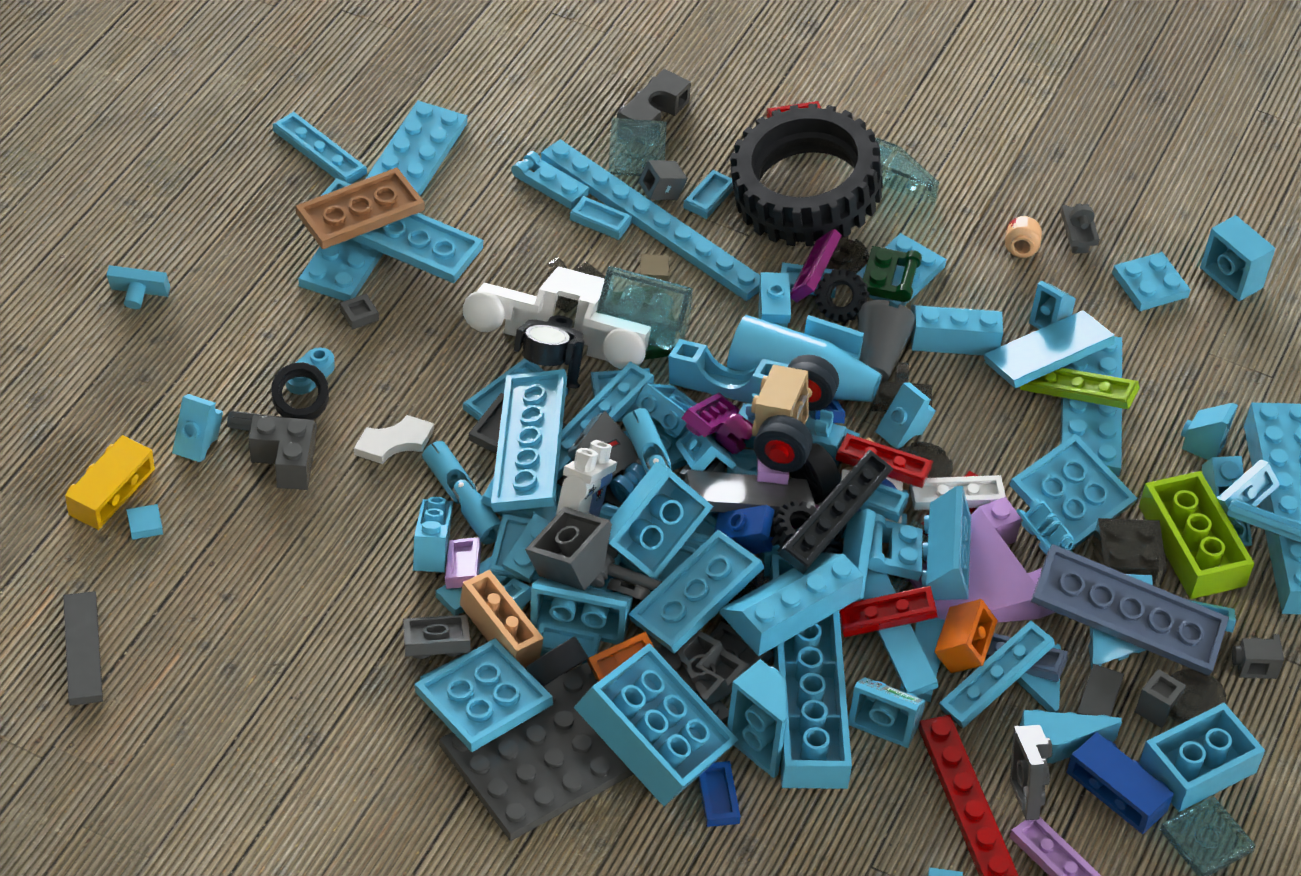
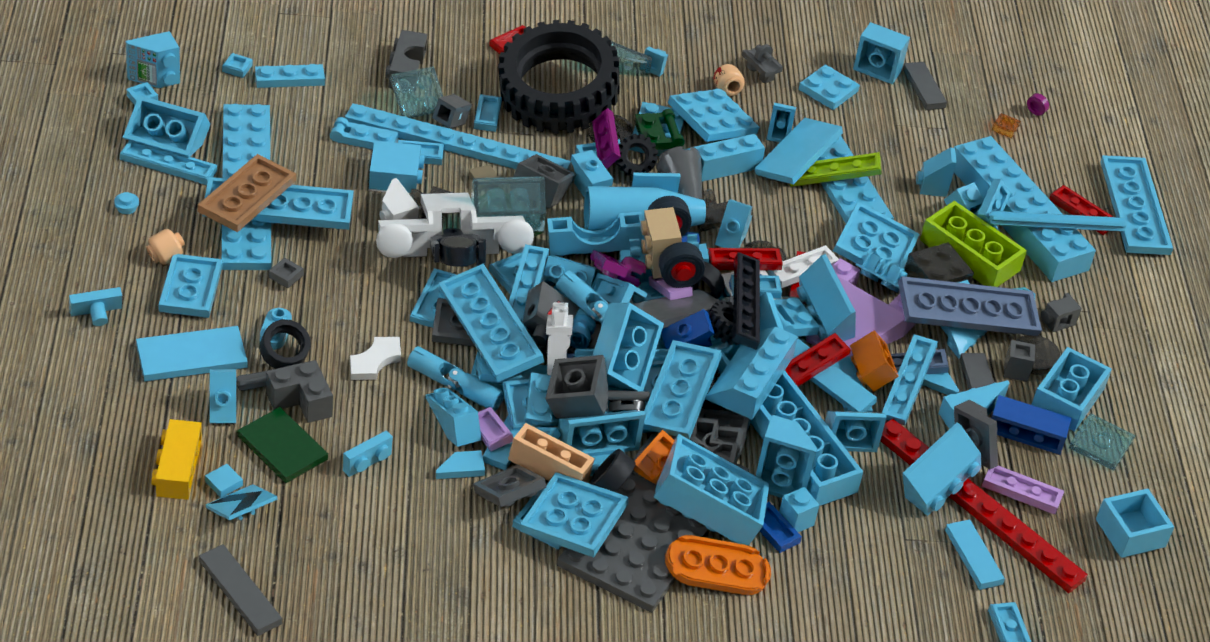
camera: 30 degrees left, 5 degrees down
(141, 552) = (241, 502): none -> medium azure piece
(203, 369) = (191, 353): none -> medium azure tile
(231, 503) = (282, 445): none -> dark green tile
(245, 181) = (126, 203): none -> medium azure plate
(249, 242) = (164, 246): none -> light nougat head
(249, 294) = (190, 285): none -> medium azure plate
(310, 544) = (367, 453): none -> medium azure plate
(335, 110) = (167, 126): none -> medium azure slope
(338, 65) = (143, 90): none -> medium azure plate
(367, 29) = (153, 60): none -> medium azure slope
(407, 593) = (462, 465): none -> medium azure tile
(464, 60) = (237, 65): none -> medium azure tile
(513, 88) = (289, 76): none -> medium azure plate
(527, 270) = (398, 203): none -> white slope
(556, 227) = (394, 161): none -> medium azure piece
(615, 814) = (717, 565): none -> orange tile
(717, 291) = (556, 177): none -> dark grey slope
(754, 784) = (799, 509): none -> medium azure brick
(949, 187) = (659, 60): none -> medium azure tile
(952, 798) = (941, 470): none -> medium azure slope
(975, 274) = (713, 114): none -> medium azure plate
(1278, 314) = (924, 85): none -> dark grey tile

